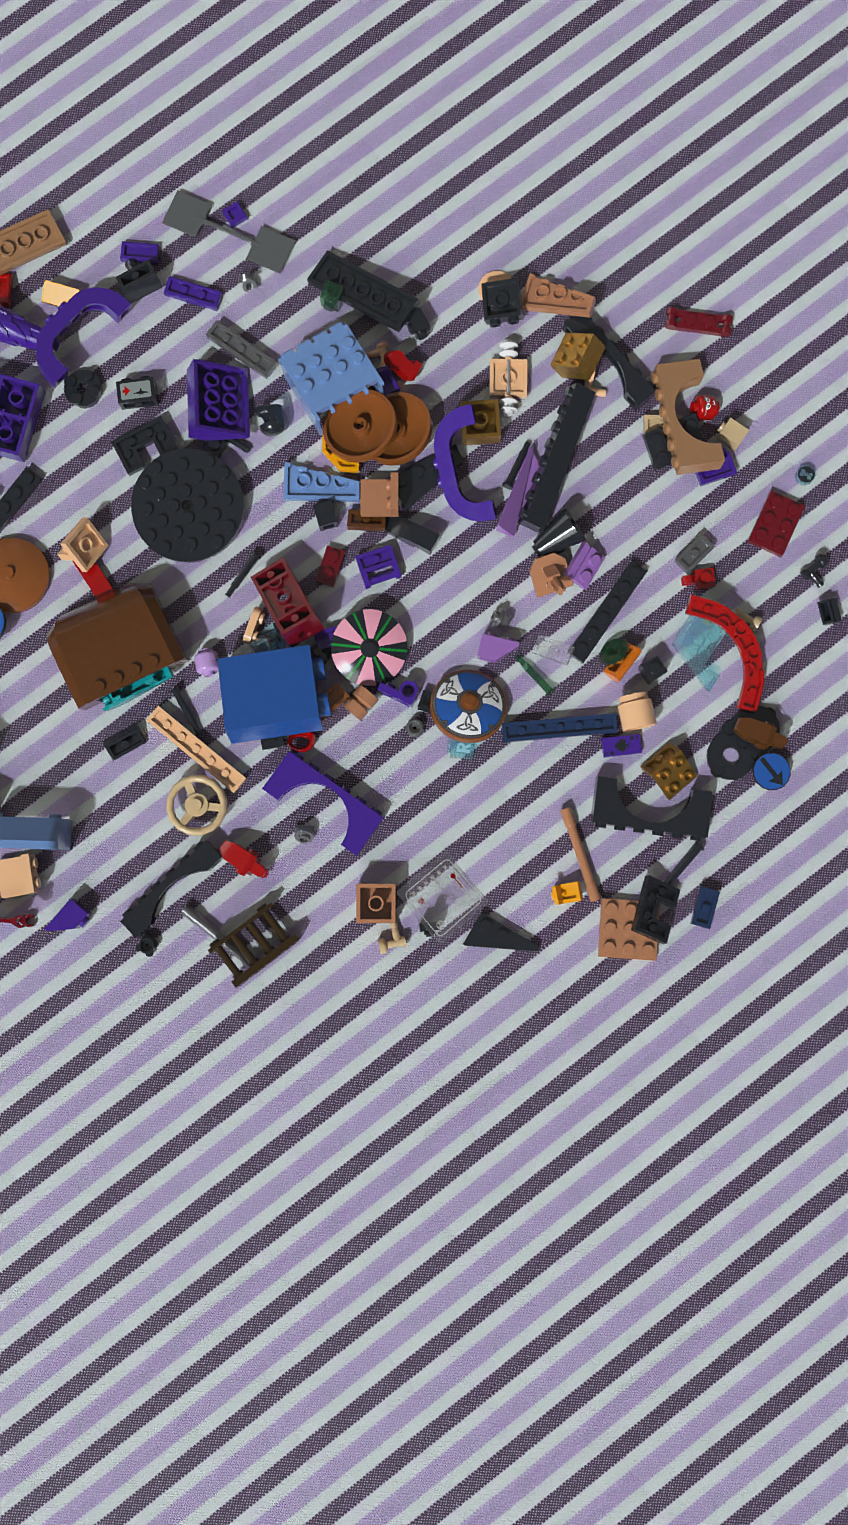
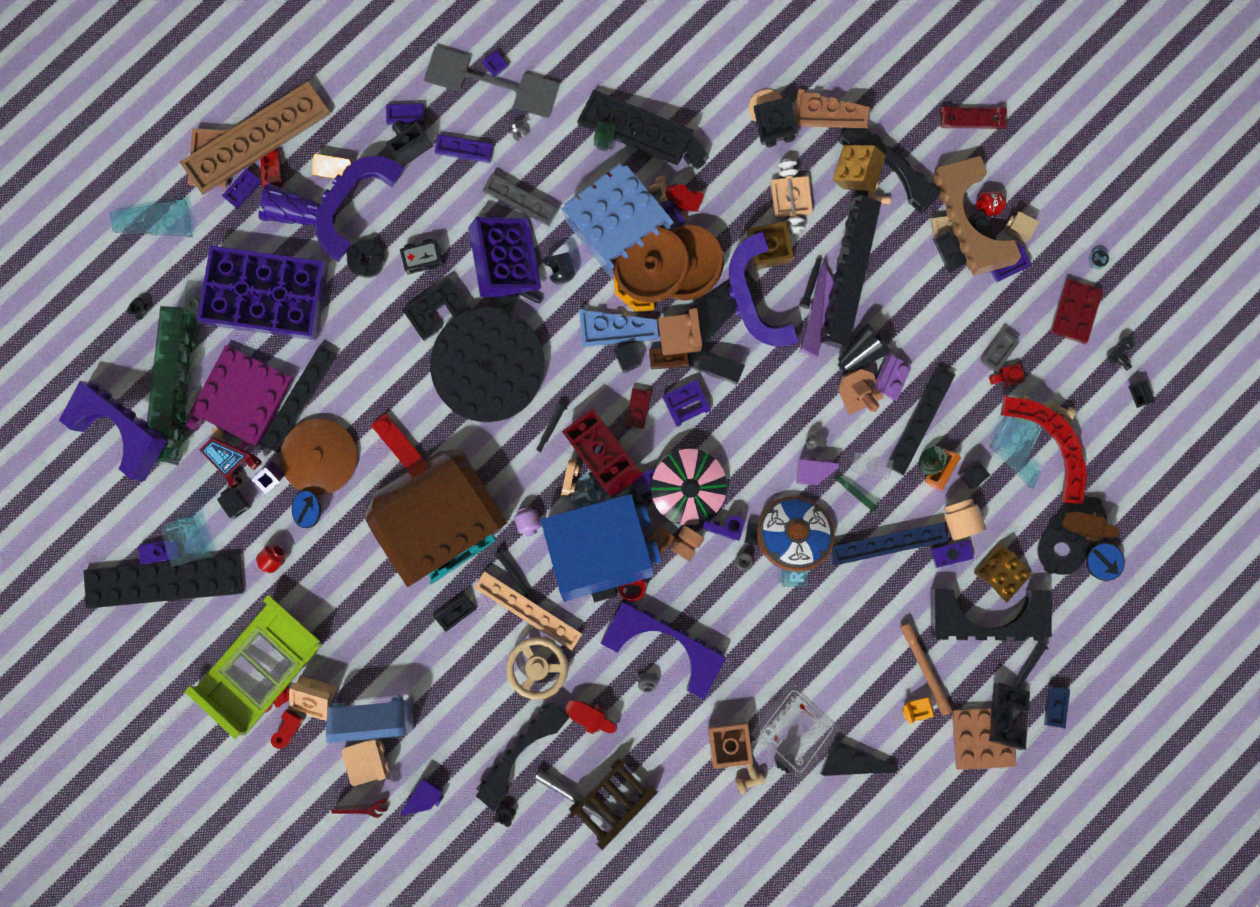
camera: 10 degrees left, 0 degrees up
(83, 545) = (388, 419): light nougat bracket -> none

